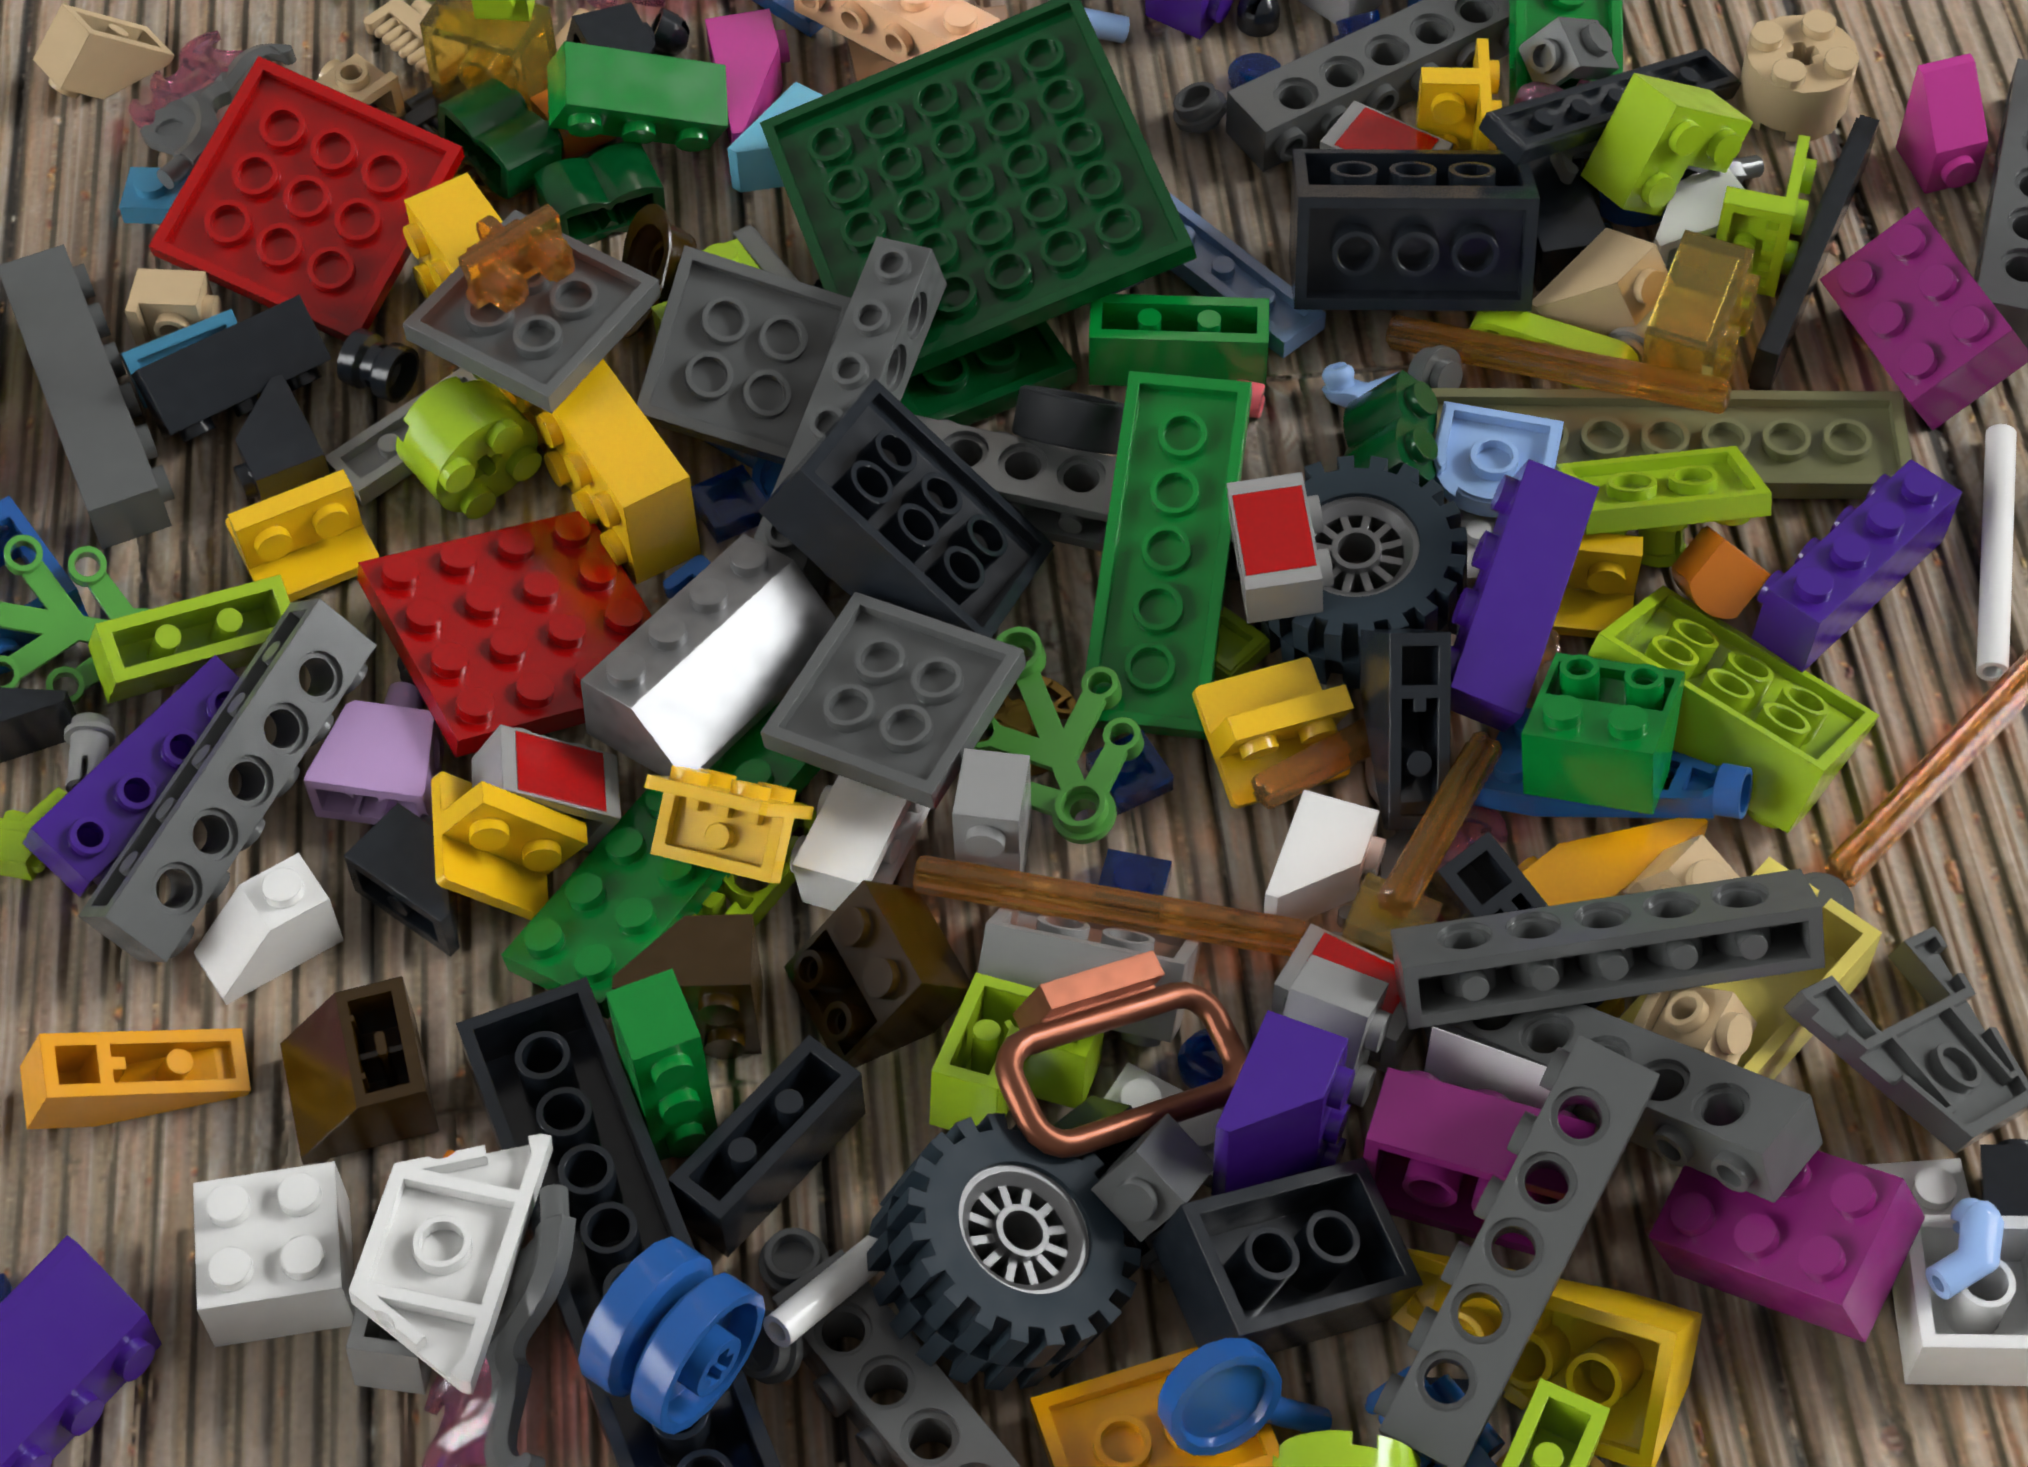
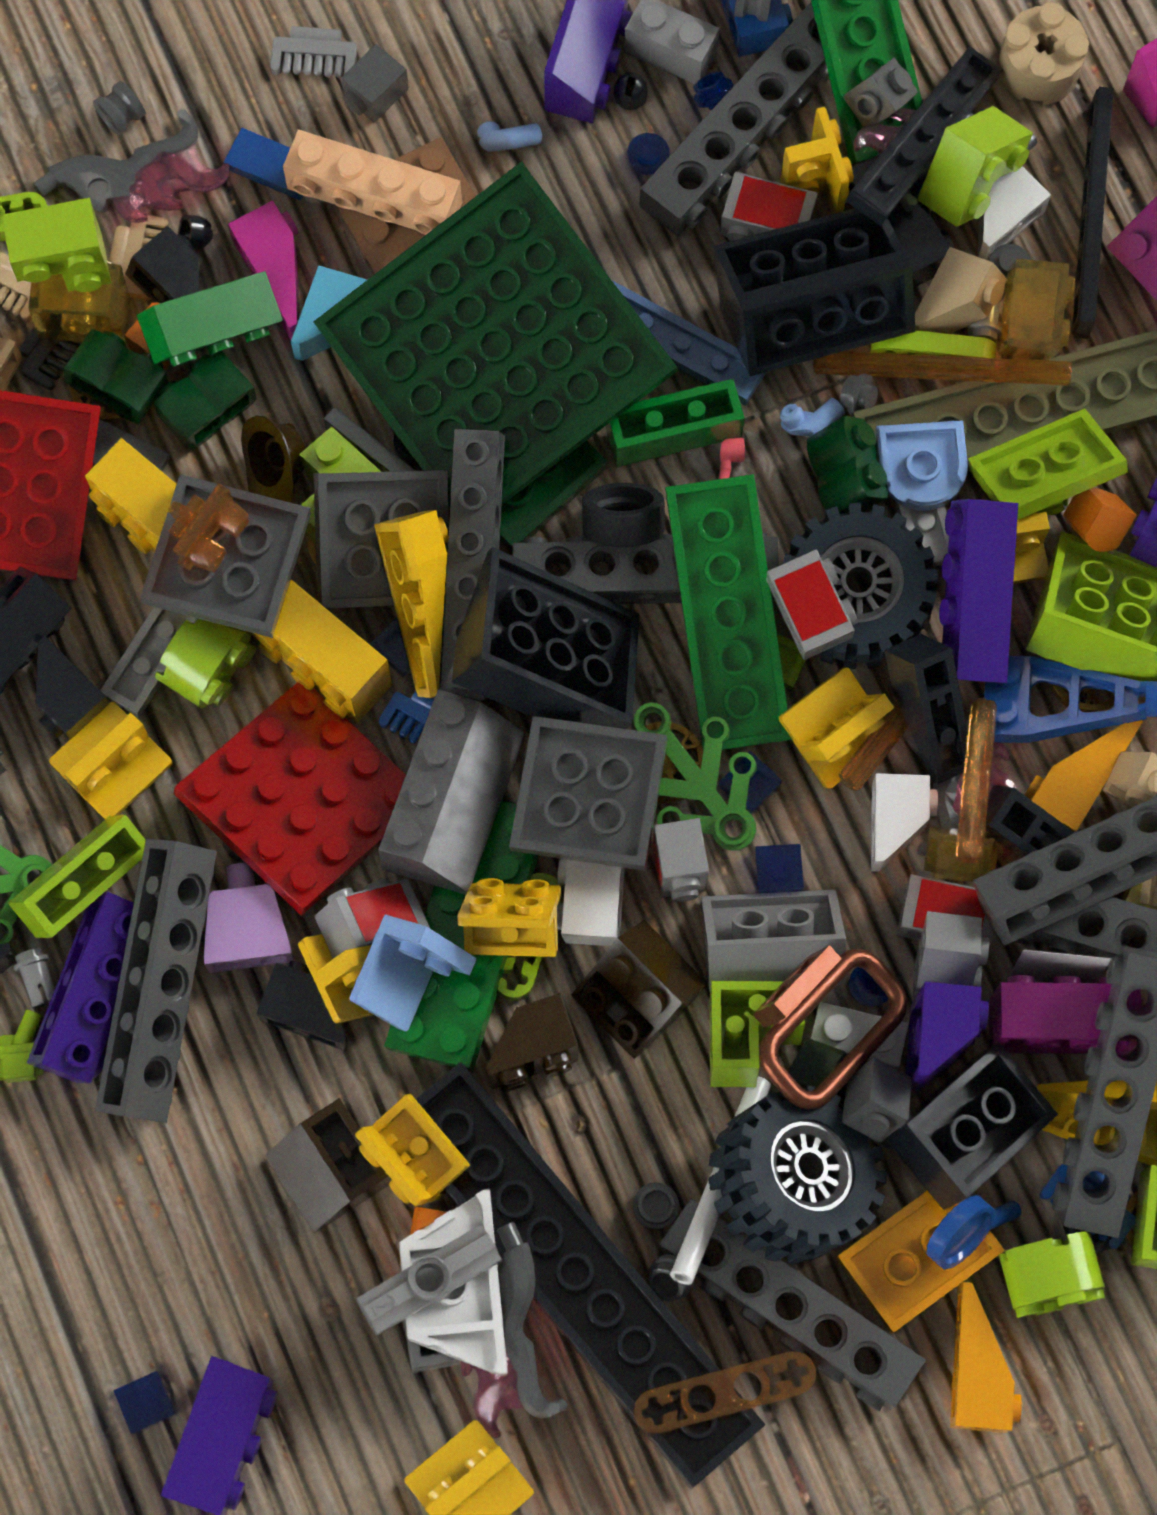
camera: 20 degrees left, 20 degrees up
(129, 1074) = (179, 1209): light orange slope -> none
(268, 929) = (220, 1077): white slope -> none
(273, 1254) = (321, 1305): white brick -> none
(362, 1218) = (402, 1297): none -> light grey piece
(372, 363) = (104, 599): black wheel -> none
(463, 1060) = (412, 1152): none -> yellow bracket
(556, 839) = (401, 967): none -> light blue bracket
(664, 1063) = (539, 1113): green brick -> none
(671, 1335) = (628, 1311): blue wheel -> none
(768, 1145) = (616, 1136): black brick -> none
(772, 380) = (416, 574): none -> yellow wedge
(1107, 905) = (773, 895): clear orange axle -> none
(1199, 107) = (618, 197): dark grey plate -> none
(1602, 733) = (1063, 682): green slope -> none
(1767, 220) = (1057, 220): lime bracket -> none

